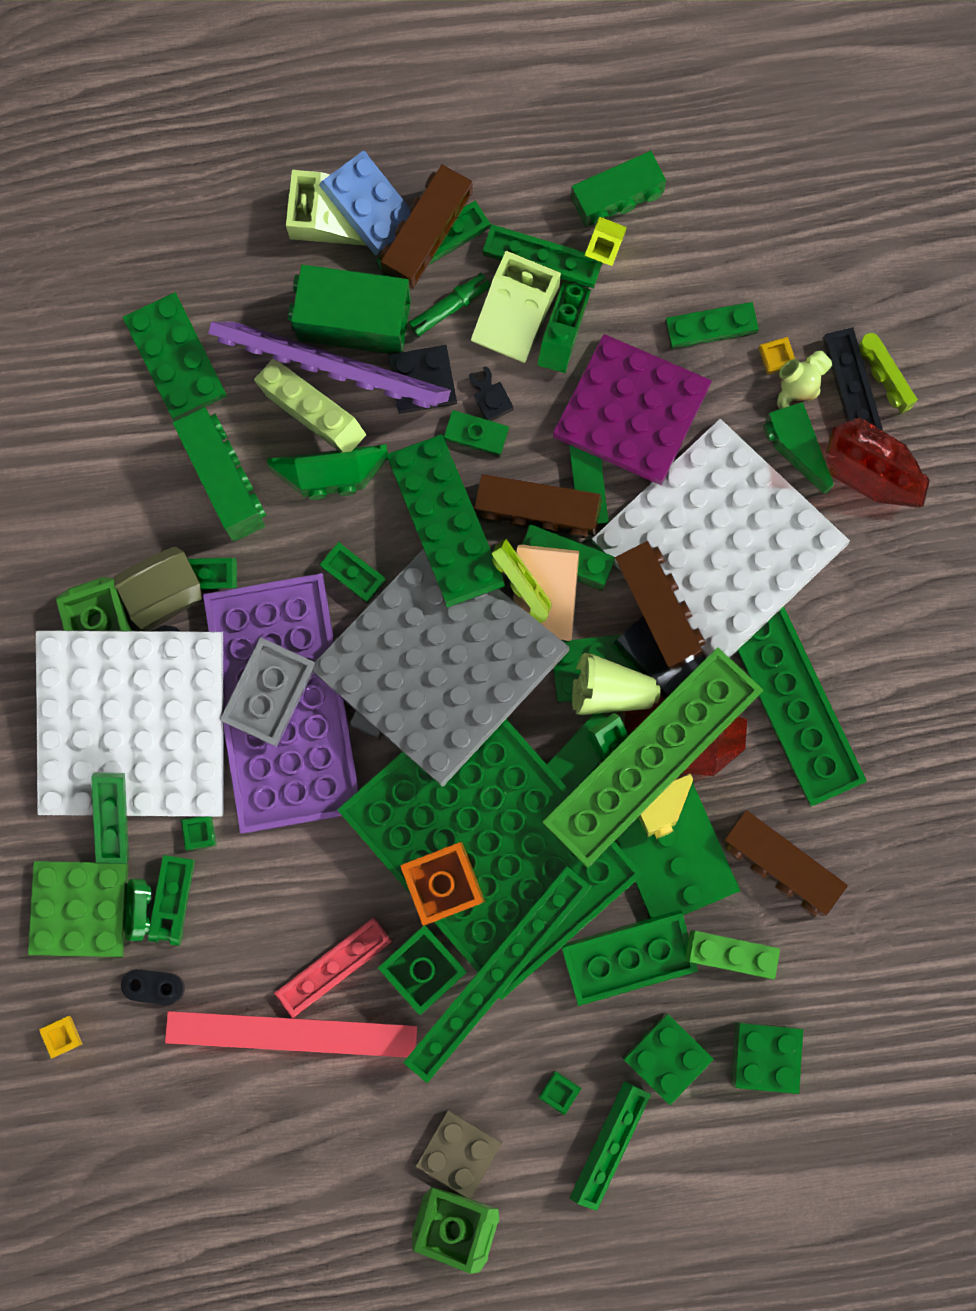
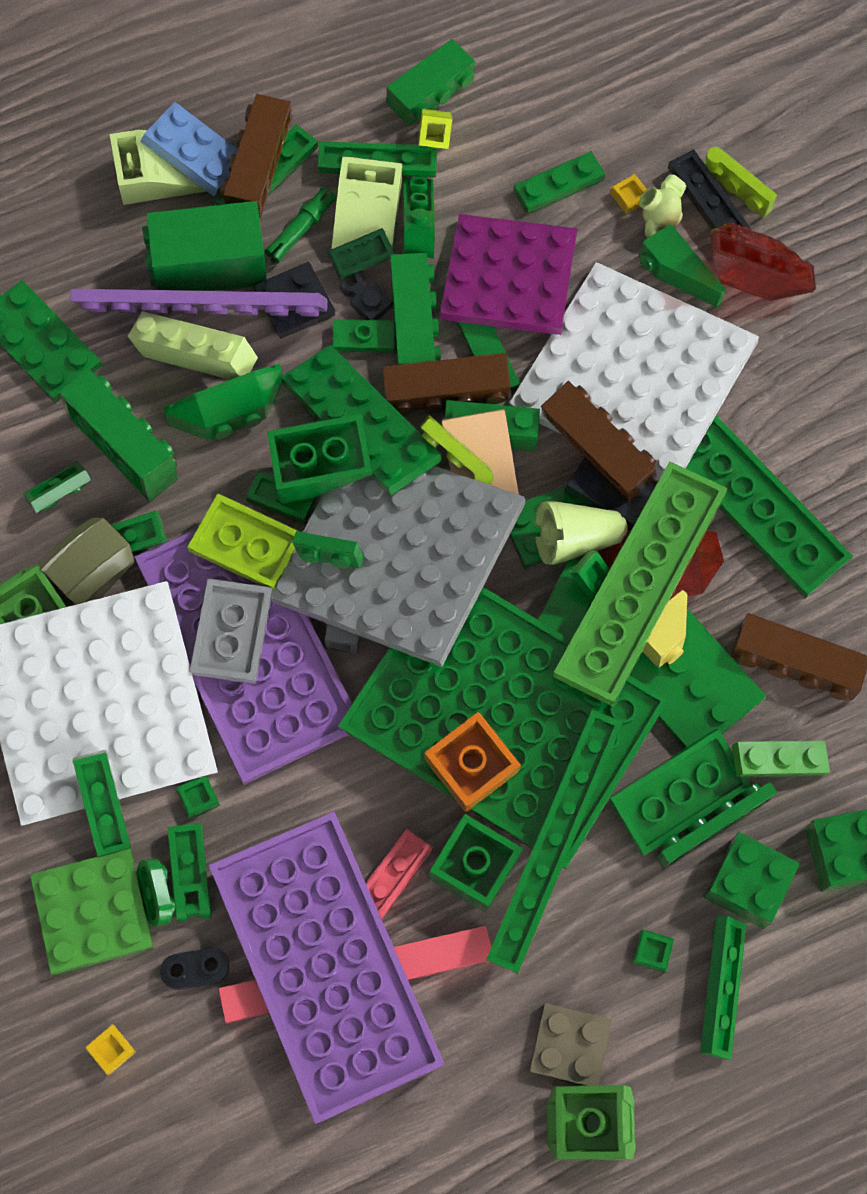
camera: 25 degrees left, 10 degrees down
(152, 506) = (48, 492): none -> green plate
(263, 1022) = (326, 967): none -> medium lavender plate
(304, 610) = (244, 542): none -> lime plate
(382, 652) = (320, 548): none -> green plate
(392, 550) = (318, 457): none -> green slope
(496, 352) = (360, 254): none -> dark green plate
(528, 423) = (413, 308): none -> green brick
(665, 992) = (726, 816): none -> green plate

